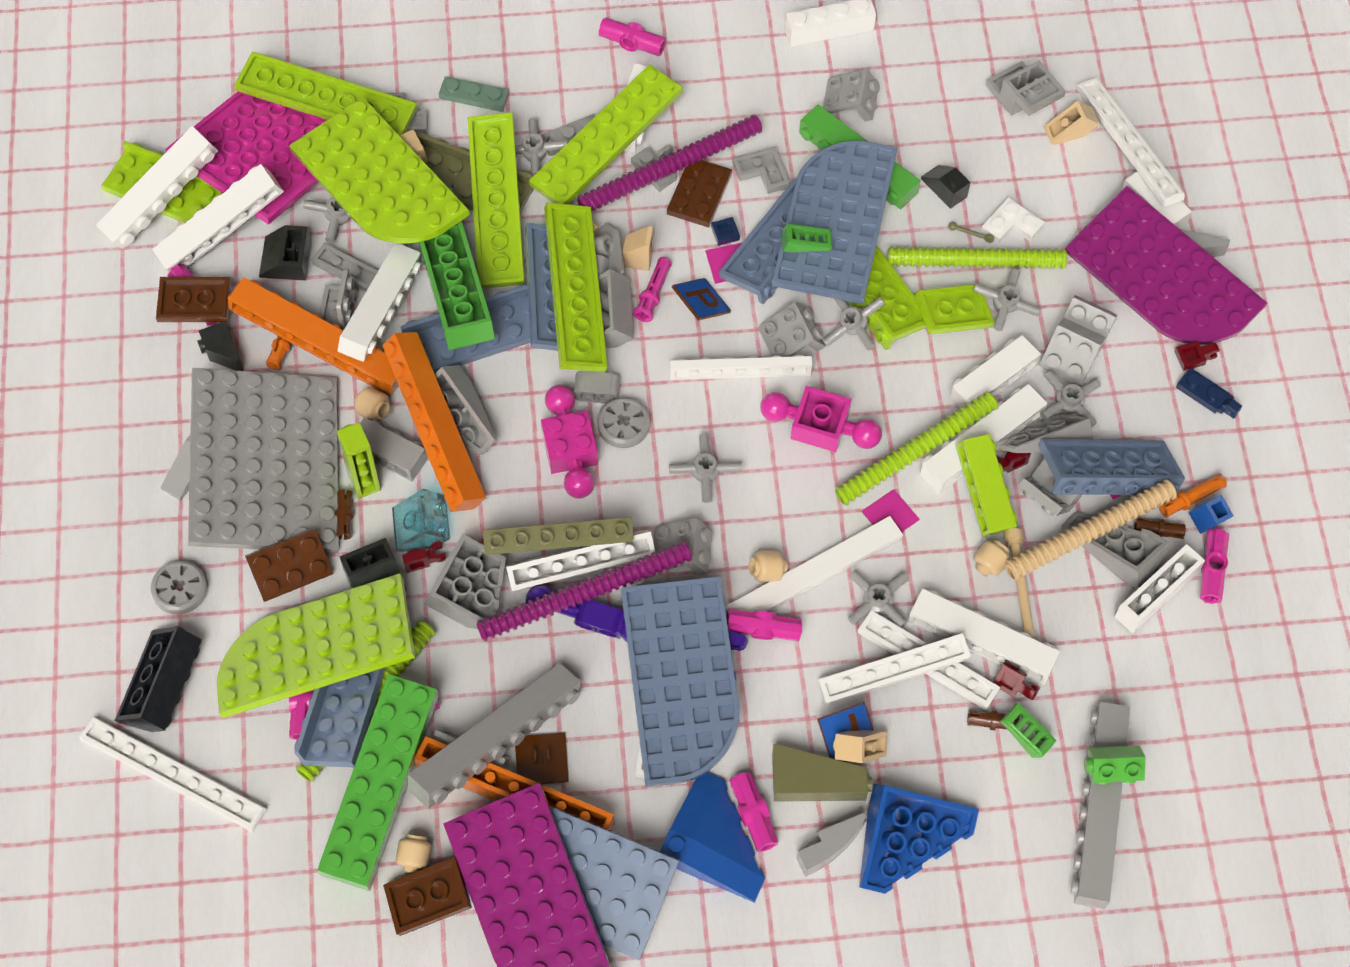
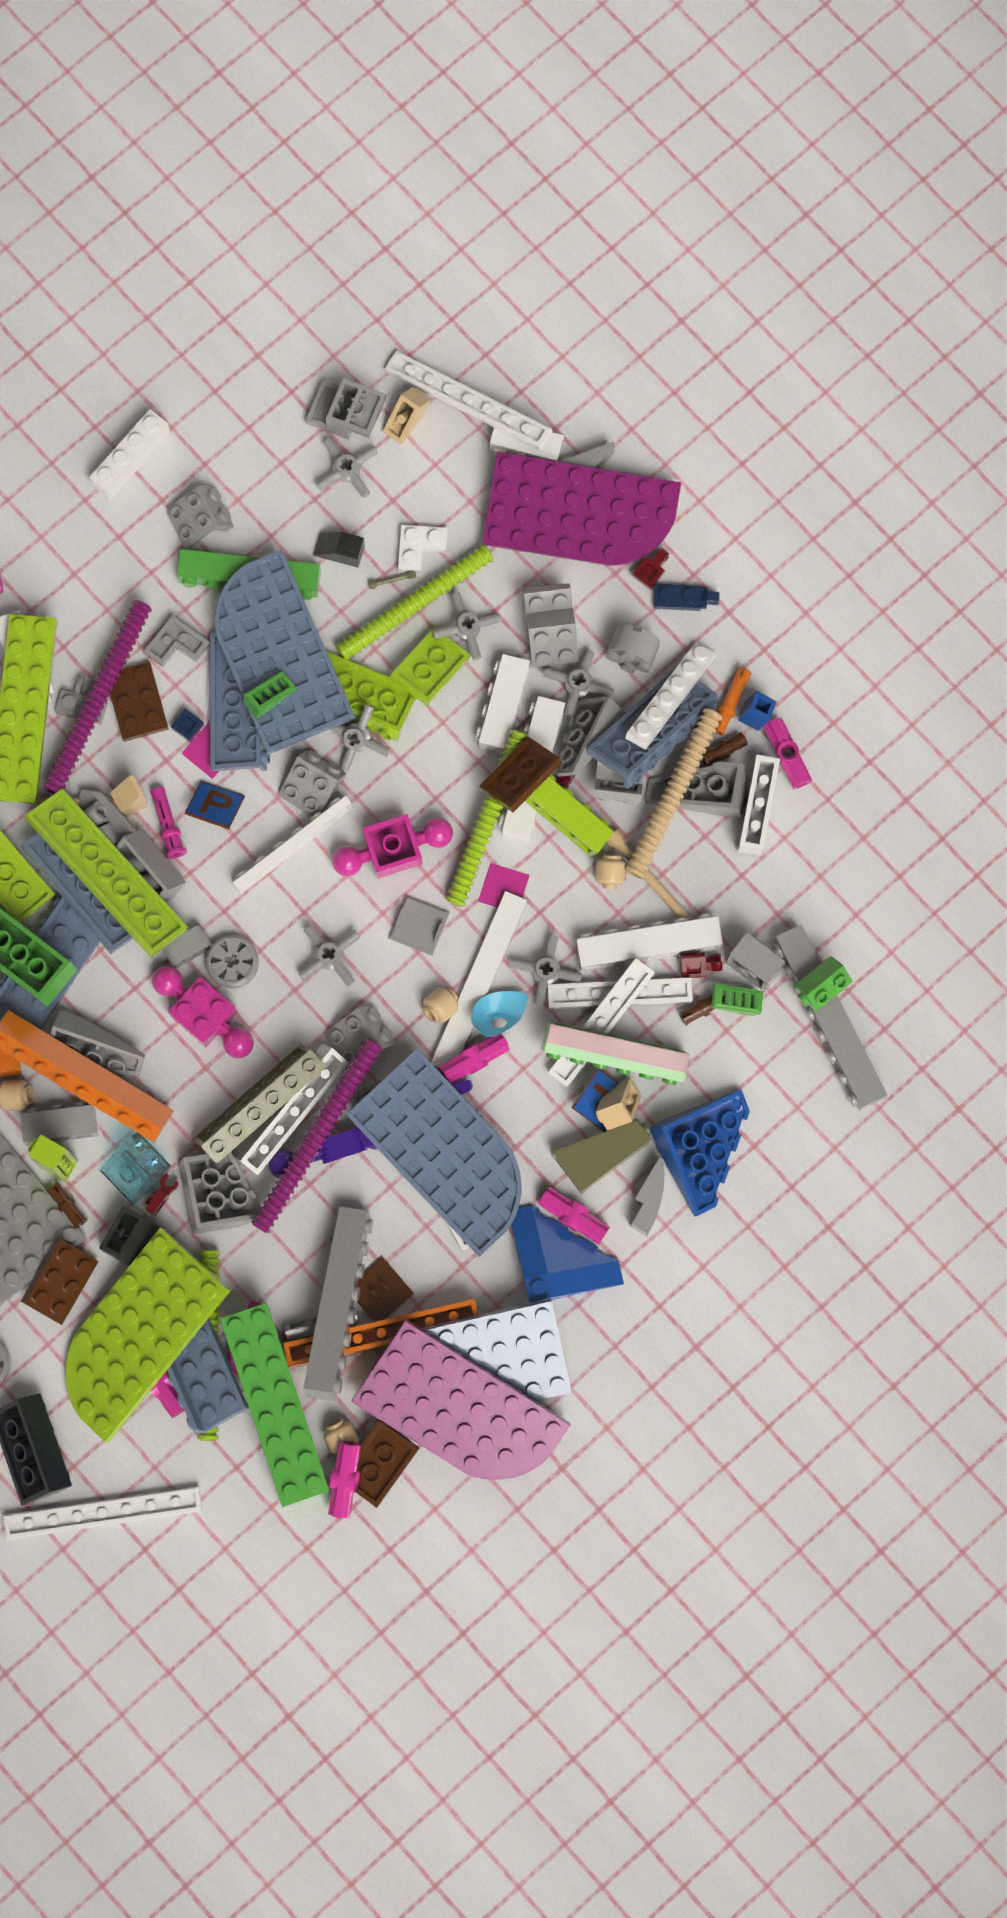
camera: 35 degrees left, 15 degrees up
(387, 887) = (344, 1479): none -> dark pink piece
(797, 496) = (419, 925): none -> light grey piece
(819, 601) = (503, 1004): none -> medium azure piece
(889, 698) = (615, 1052): none -> brick
(969, 423) = (520, 774): none -> reddish brown plate
(994, 131) = (344, 475): none -> light grey bar
(1067, 710) = (756, 961): none -> light grey brick
(1136, 399) = (633, 648): none -> light grey brick
(1142, 451) = (670, 696): none -> white plate

